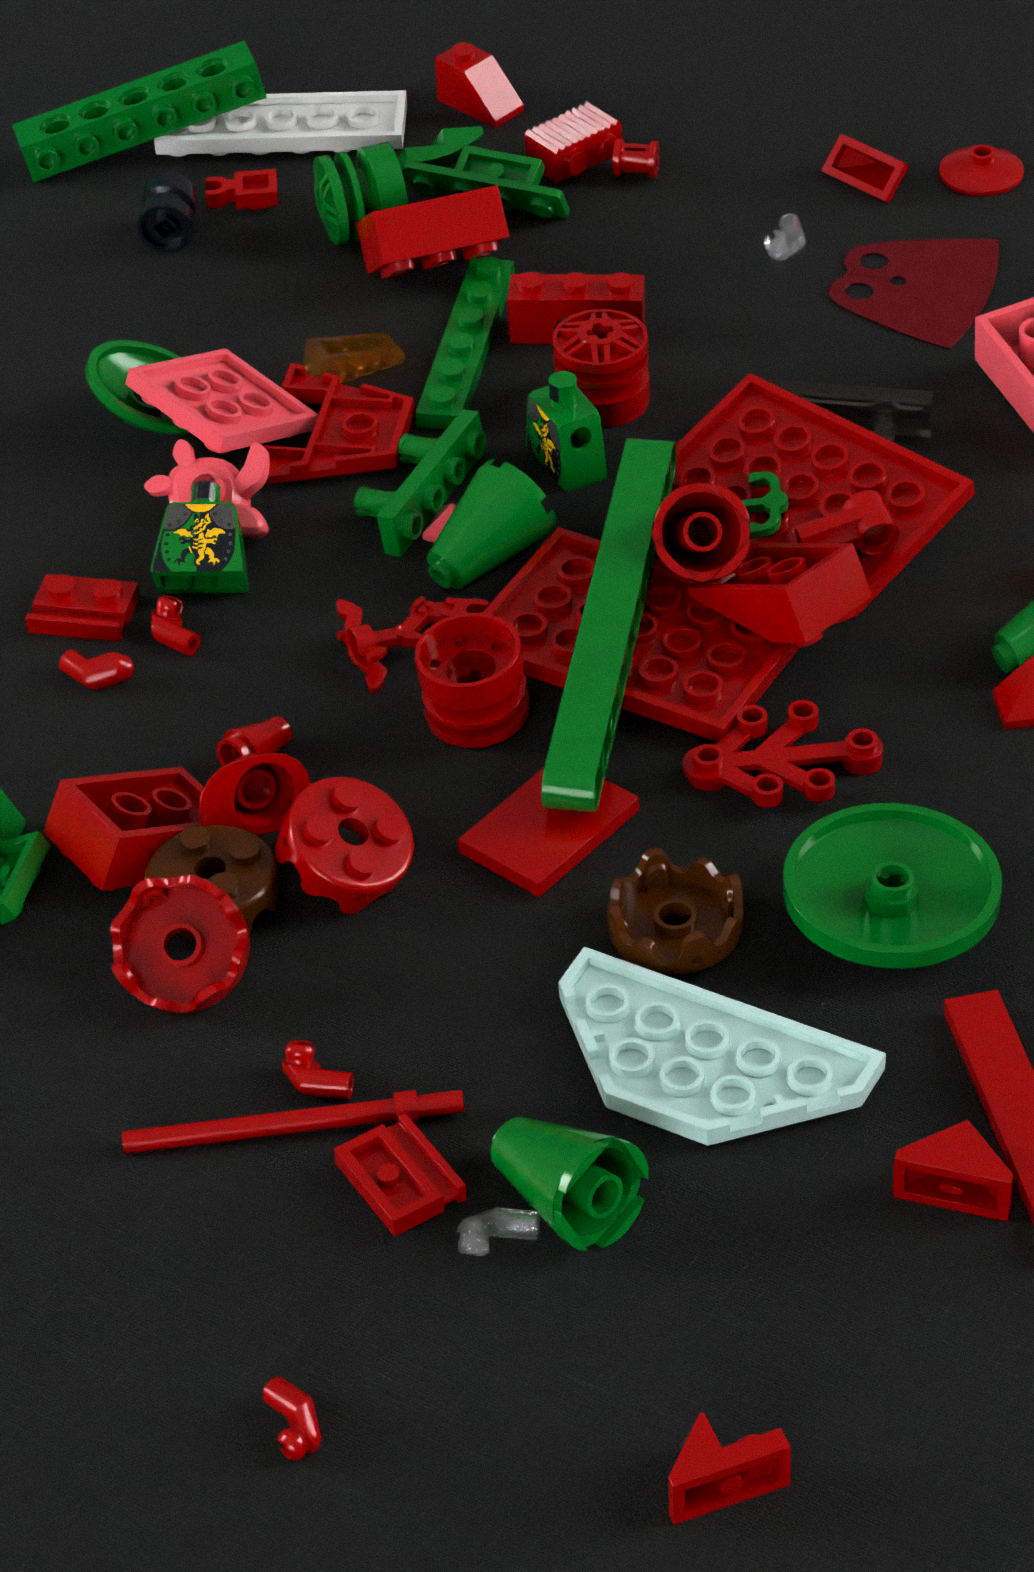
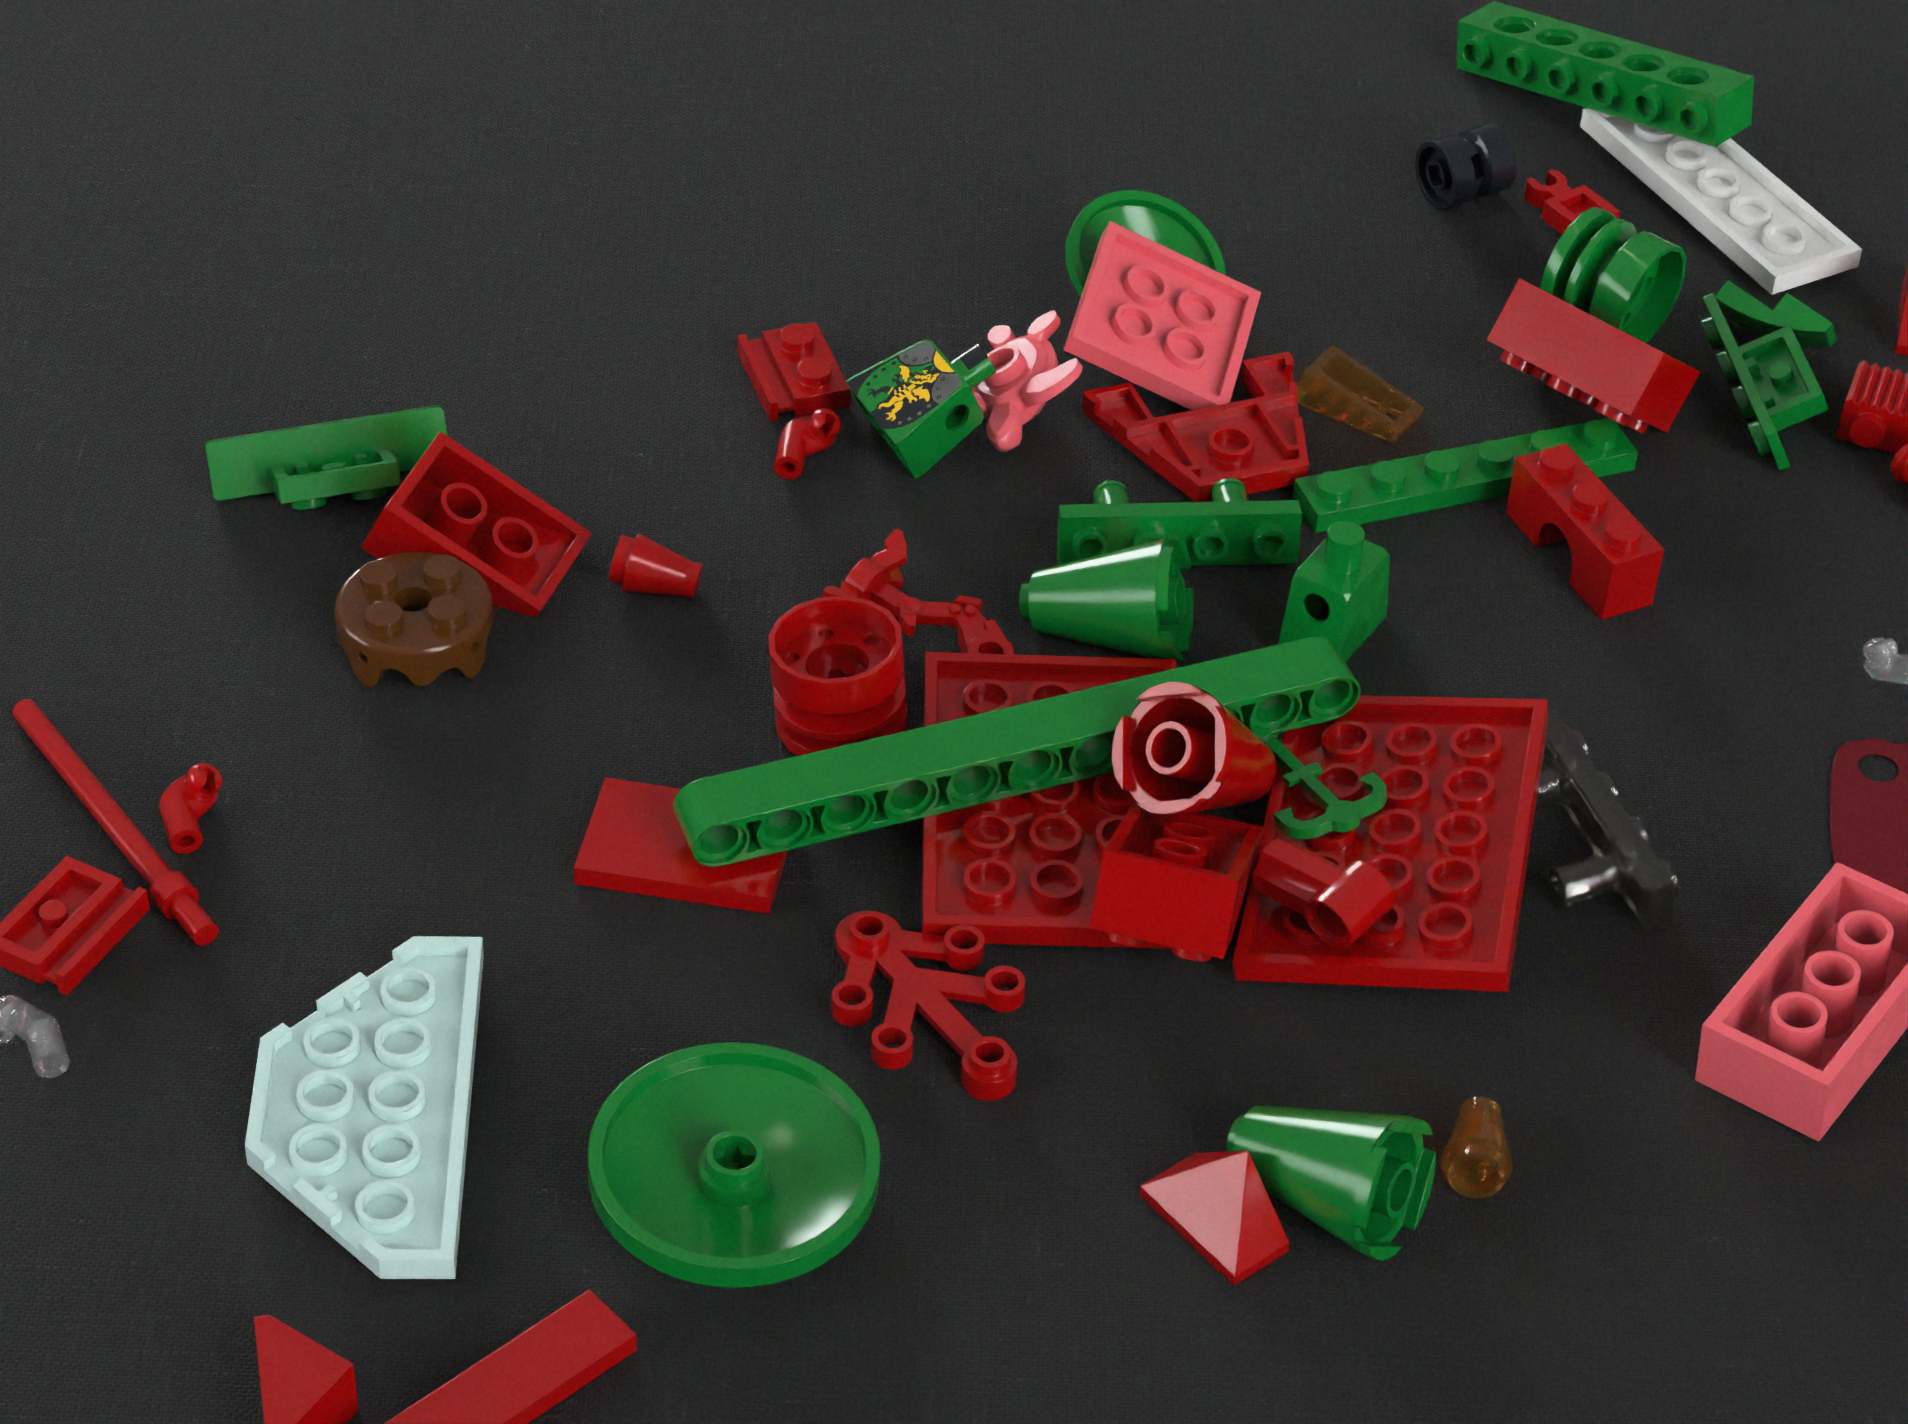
camera: 55 degrees right, 0 degrees up
(98, 671) = (699, 419): red arm -> none
(142, 938) = (256, 629): red plate -> none
(253, 792) = (550, 589): red piece -> none
(329, 864) = (525, 724): red plate -> none
(573, 1178) = (96, 1056): green cone -> none
(609, 359) = (1476, 584): red wheel -> none
(660, 894) = (581, 961): reddish brown plate -> none

